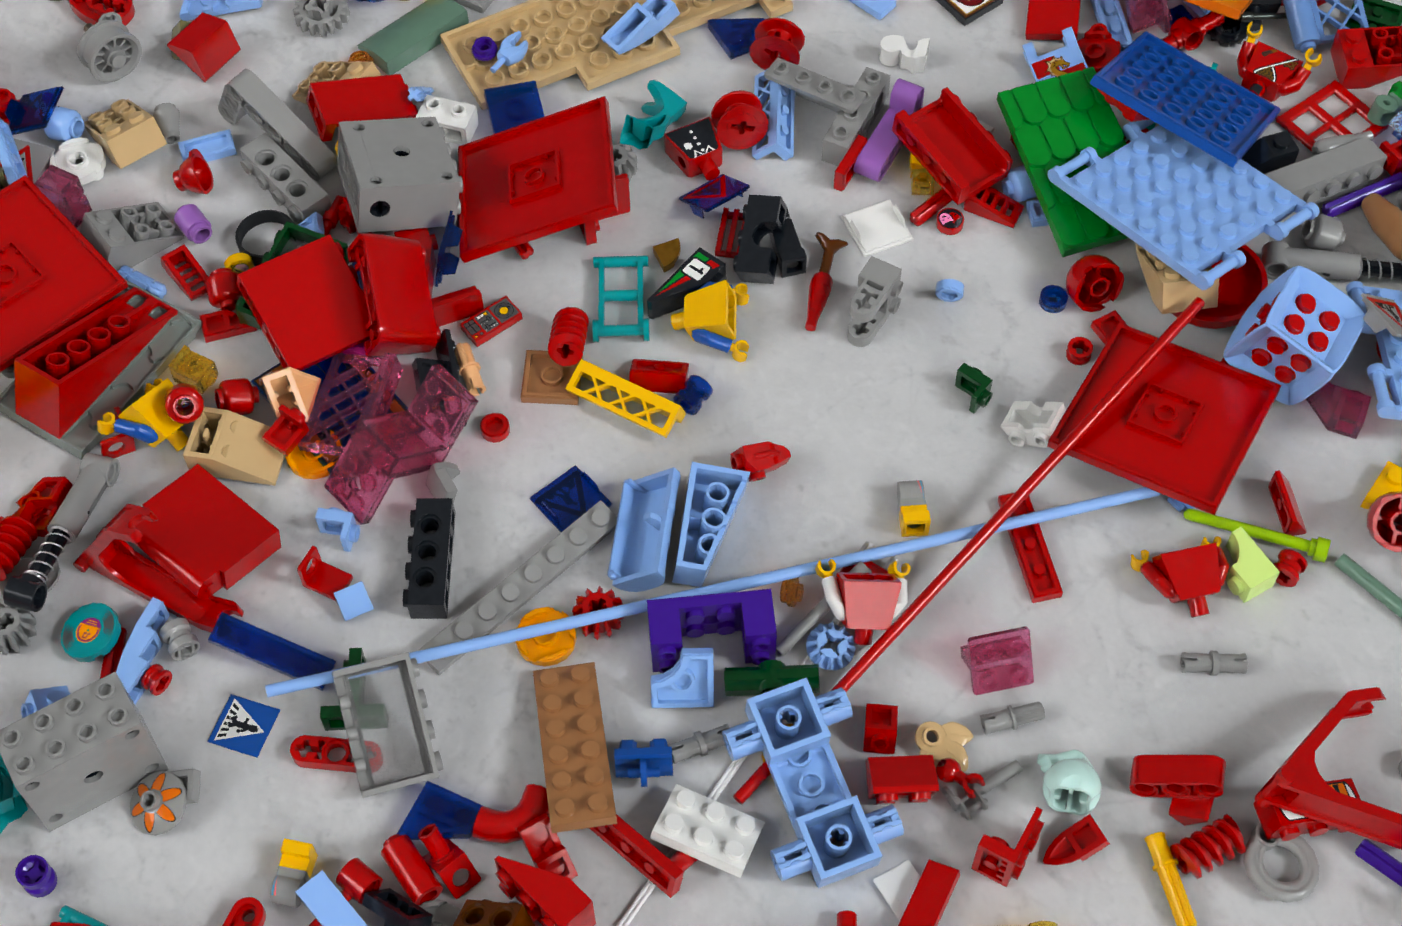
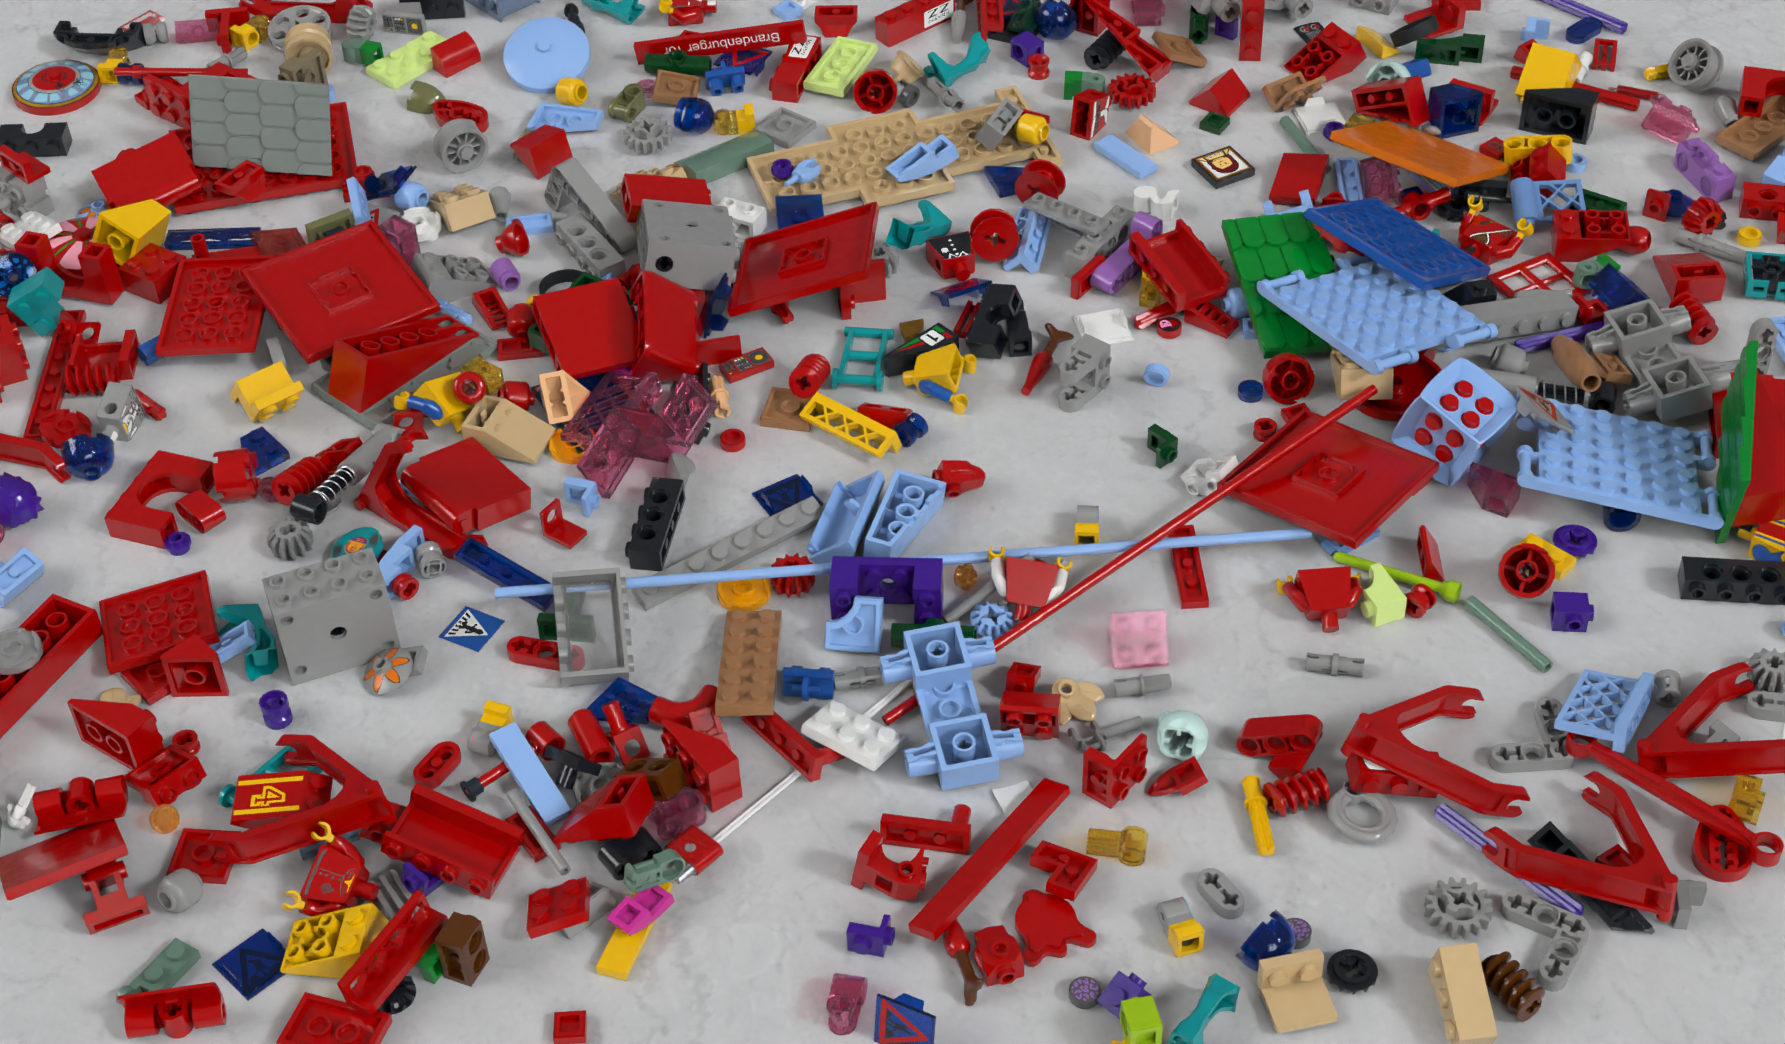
camera: 10 degrees right, 15 degrees down
(287, 430) = (553, 420): red bracket -> none
(353, 601) = (583, 547): light blue tile -> none
(419, 93) = (717, 195): light blue axle -> none
(952, 772) = (1077, 715): red arm -> none

